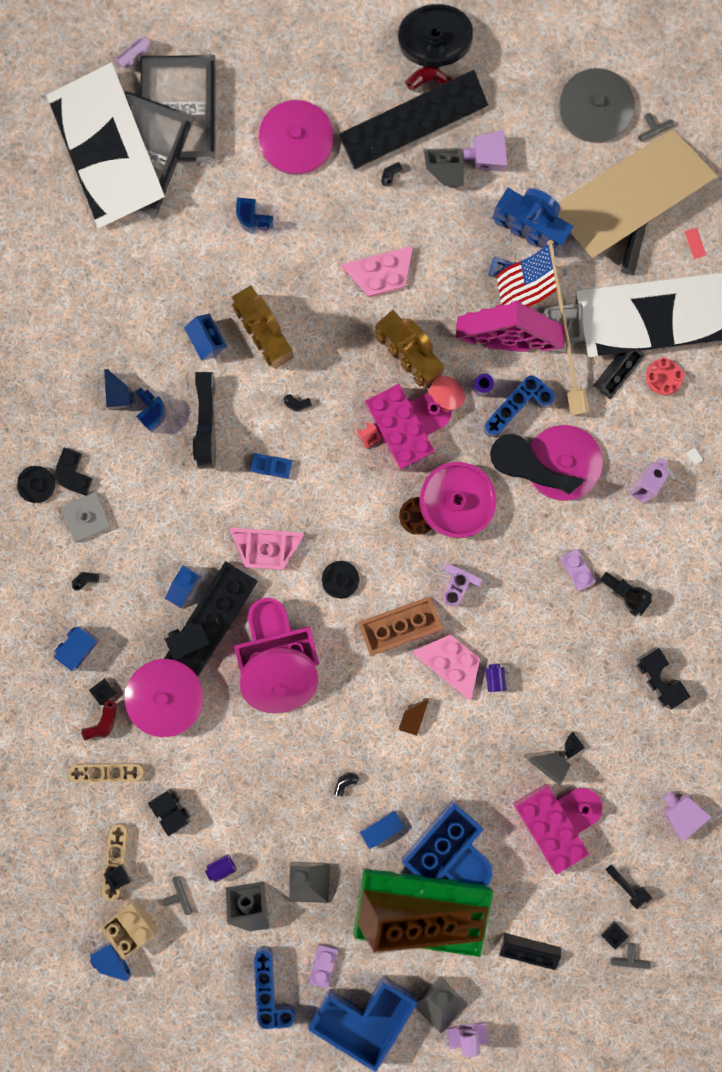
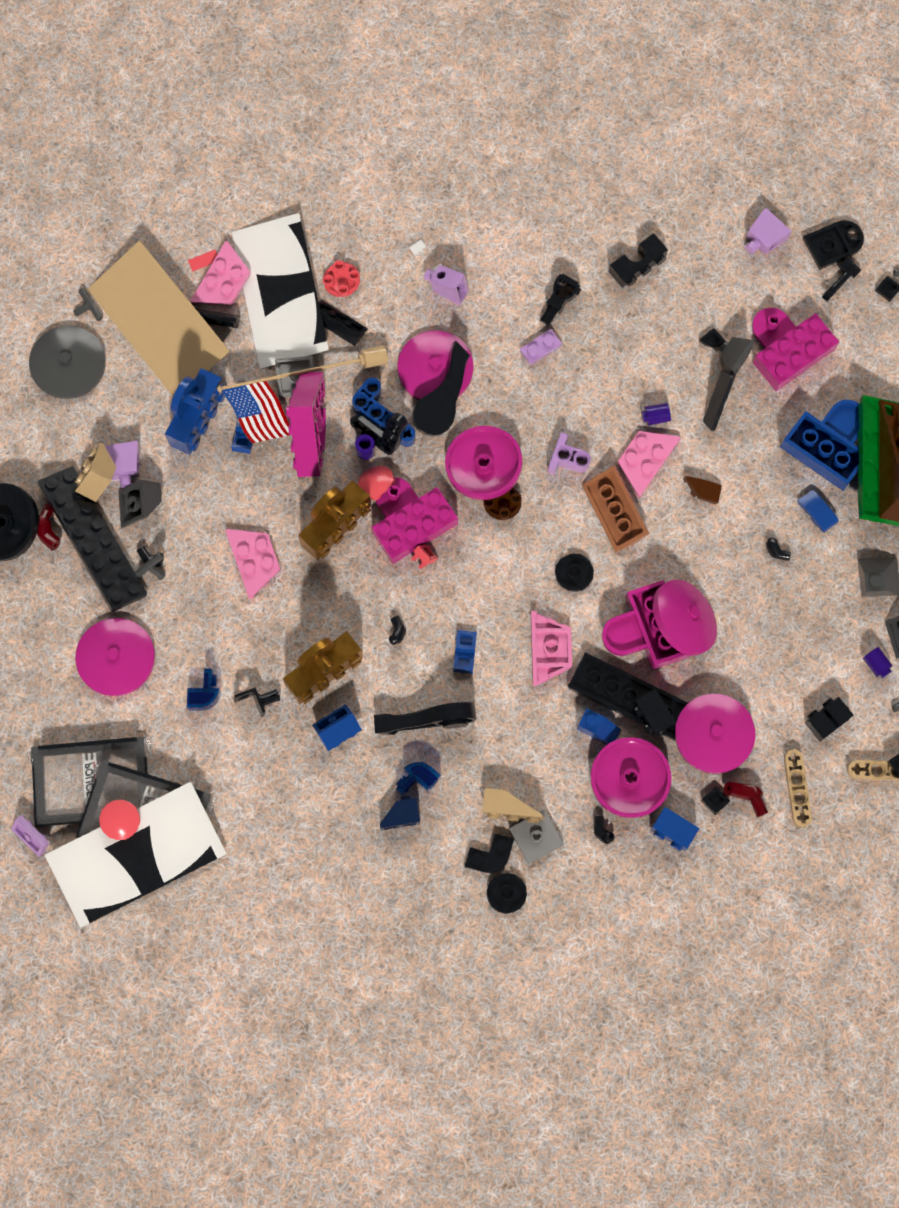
camera: 90 degrees left, 10 degrees down
(116, 490) = (503, 804): none -> tan slope
(129, 611) = (630, 777): none -> dark pink dish
(134, 129) = (119, 819): none -> coral dish
(240, 270) = (260, 700): none -> black bracket
(380, 173) = (150, 566): none -> dark grey piece
(475, 122) = (96, 473): none -> tan slope
(491, 407) = (365, 425): none -> black beam
(503, 742) = (718, 399): none -> black slope
(669, 884) = (833, 243): none -> black tile
(673, 260) = (223, 279): none -> bright pink wing

